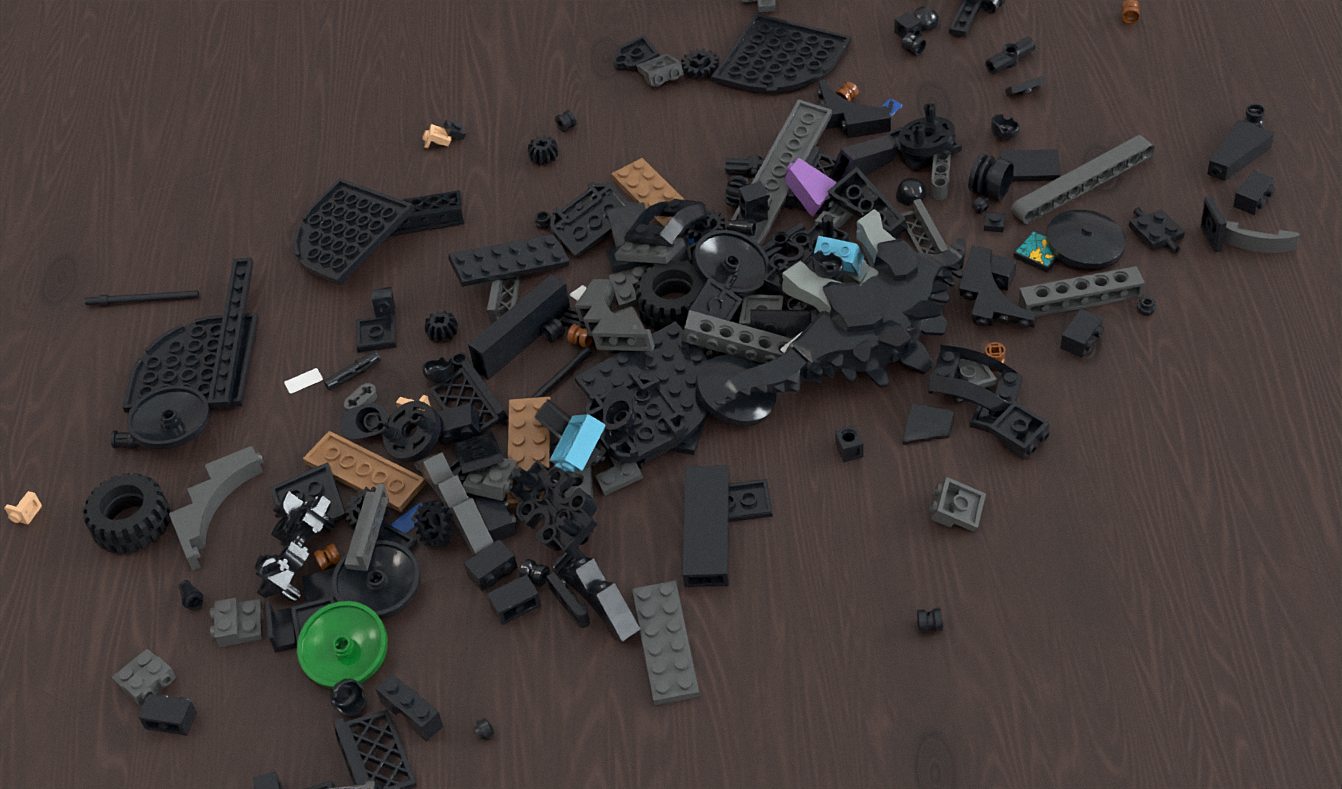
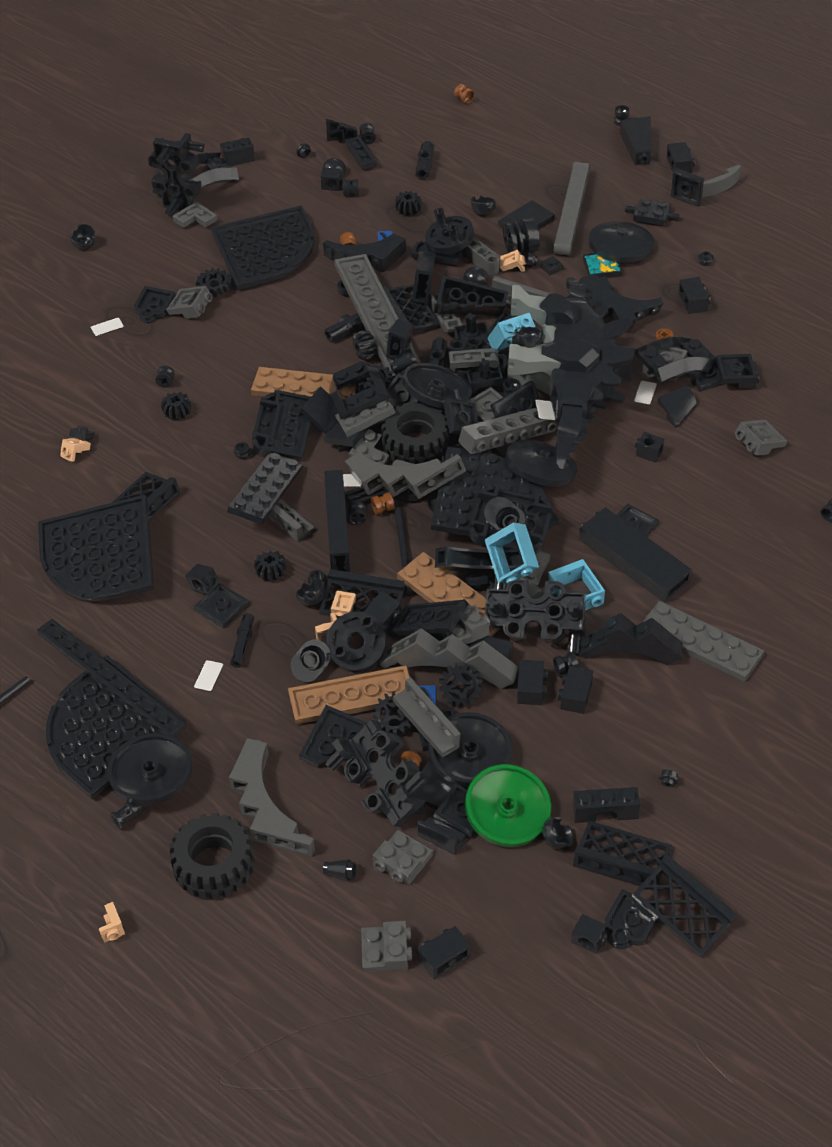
camera: 50 degrees left, 0 degrees up
(363, 395) = (280, 653): dark grey beam -> none
(443, 395) = (343, 603): none -> light nougat bracket
(568, 600) = (612, 663): black plate -> none
(584, 53) = (107, 326): none -> white sticker
(631, 500) = (577, 571): none -> medium azure window
(782, 253) = (471, 358): none -> dark grey plate
(808, 185) = (415, 310): medium lavender slope -> none
(918, 394) = (645, 392): none -> white sticker
(943, 87) = (408, 203): none -> black gear
(963, 195) = (512, 260): none -> light nougat bracket
(1025, 87) = (460, 174): black plate -> none
(1082, 291) = (662, 270): dark grey brick -> none

